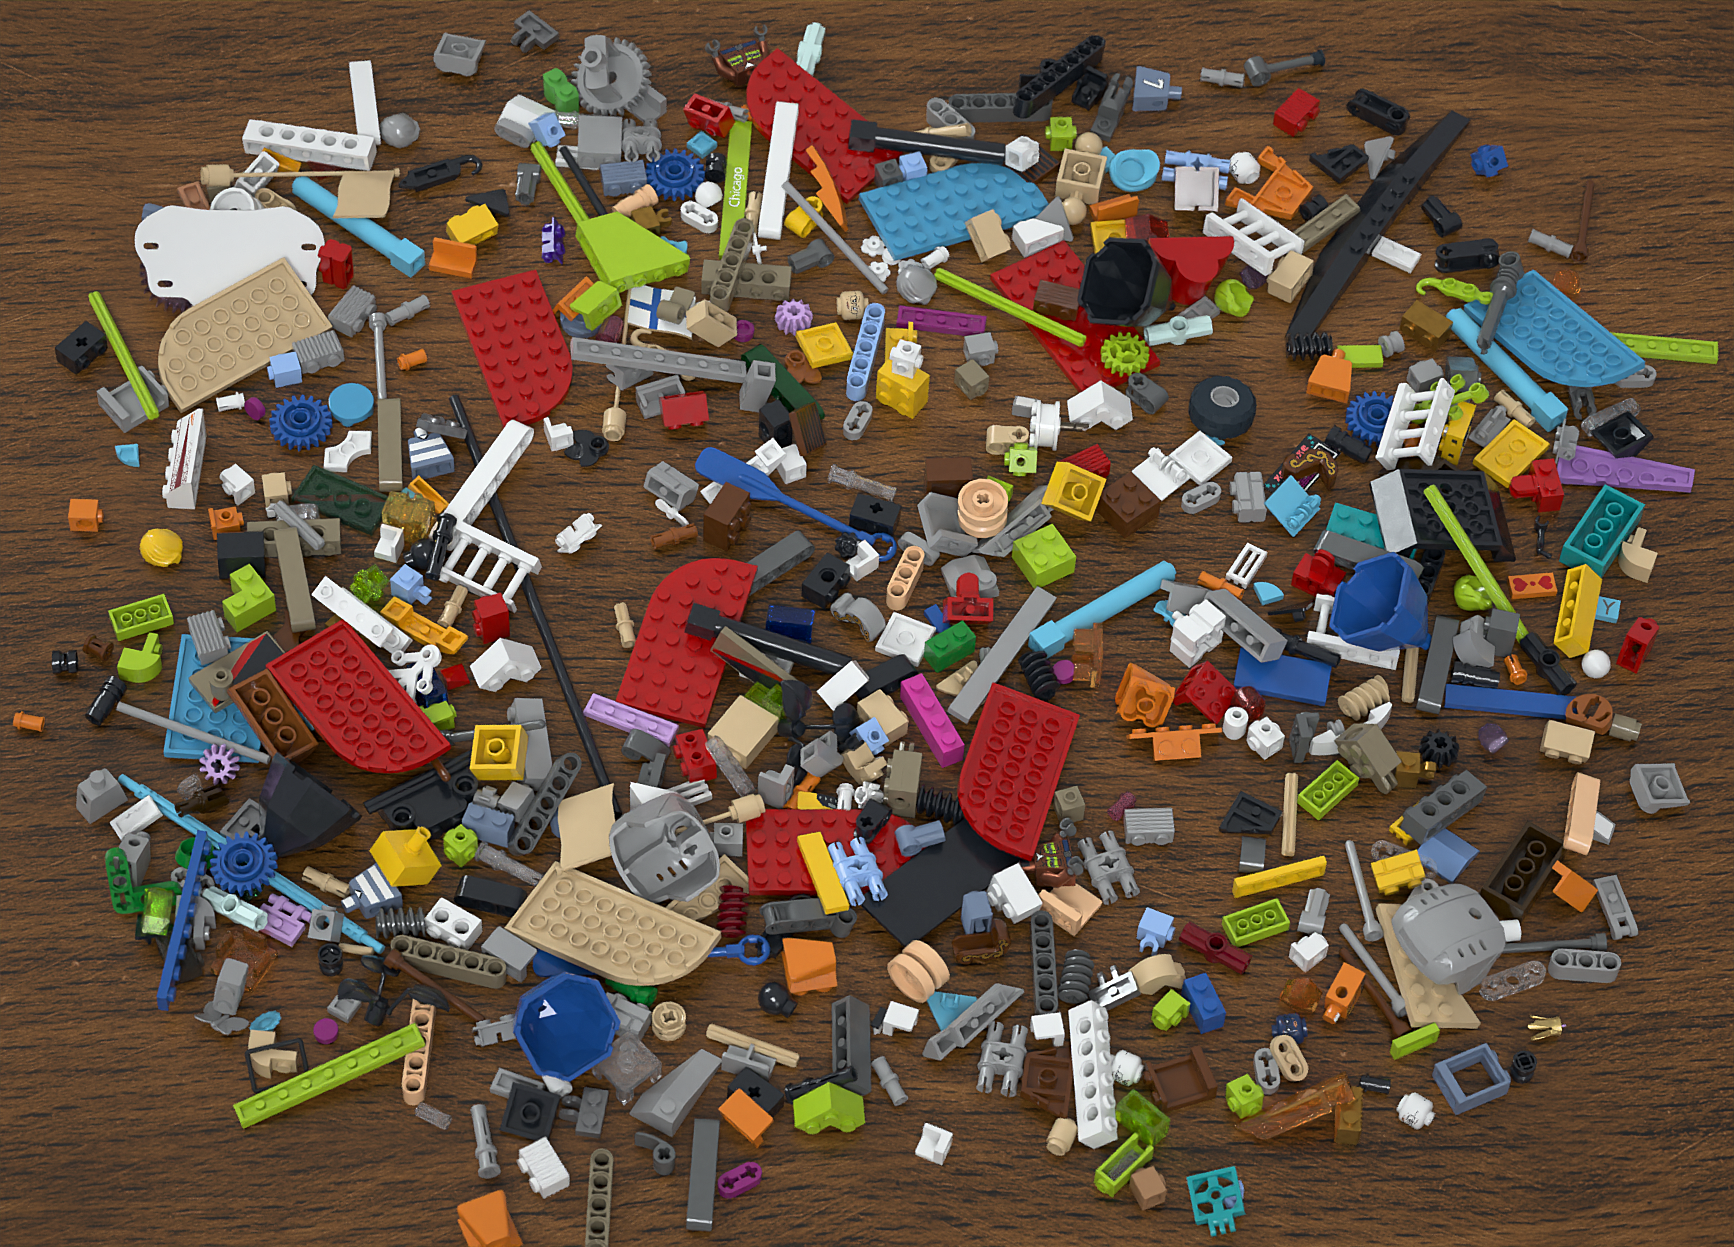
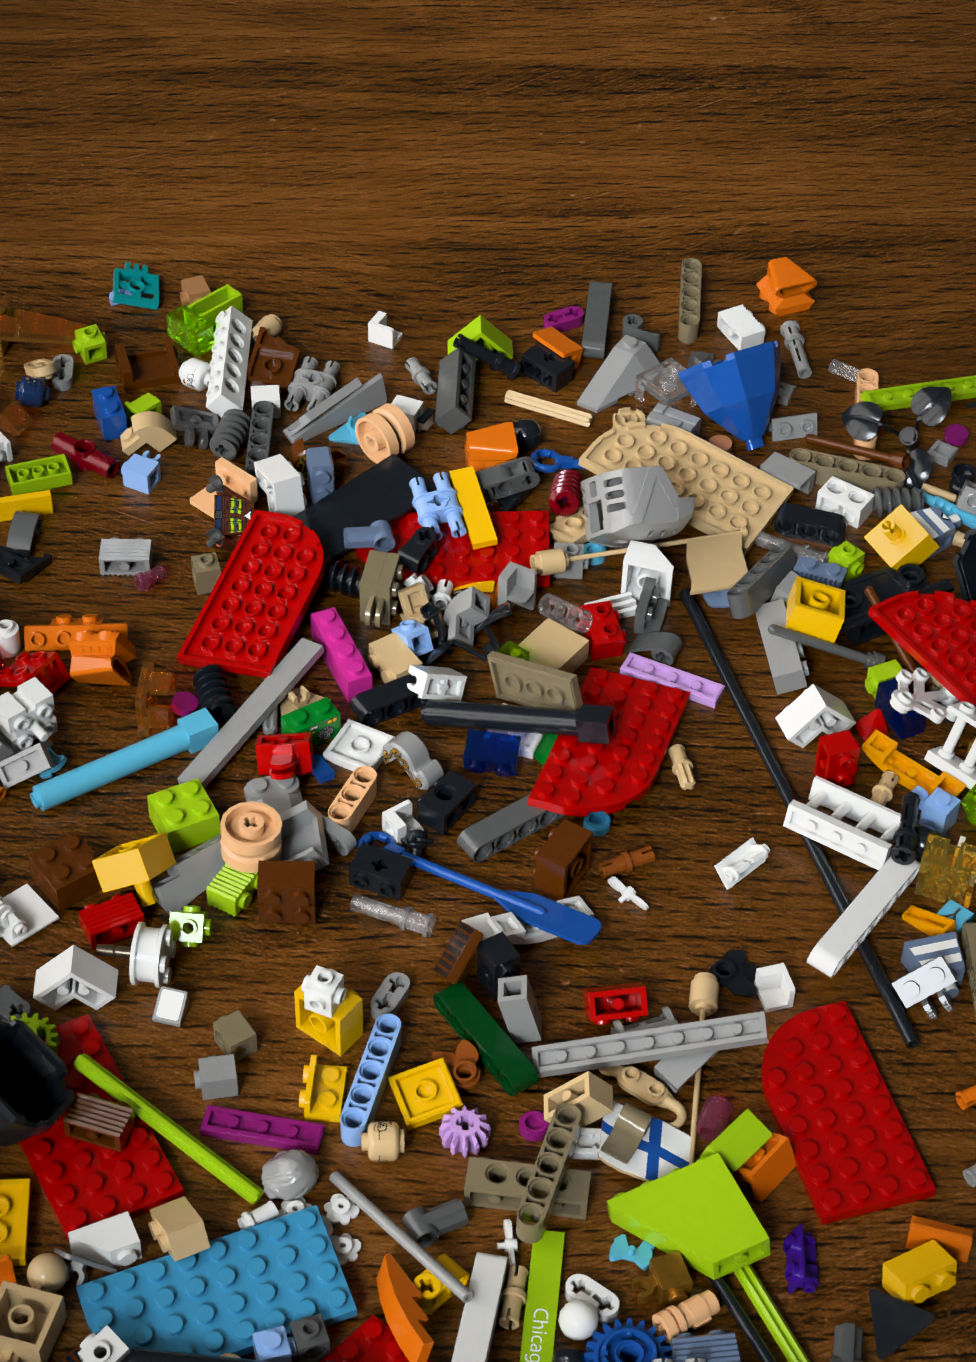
camera: 175 degrees left, 10 degrees down
(671, 485) = (630, 911): light grey brick -> none
(737, 1059) = (555, 387): light grey panel -> none
(1001, 437) = (205, 958): tan piece -> none
(1108, 867) = (176, 525): light grey pin -> none

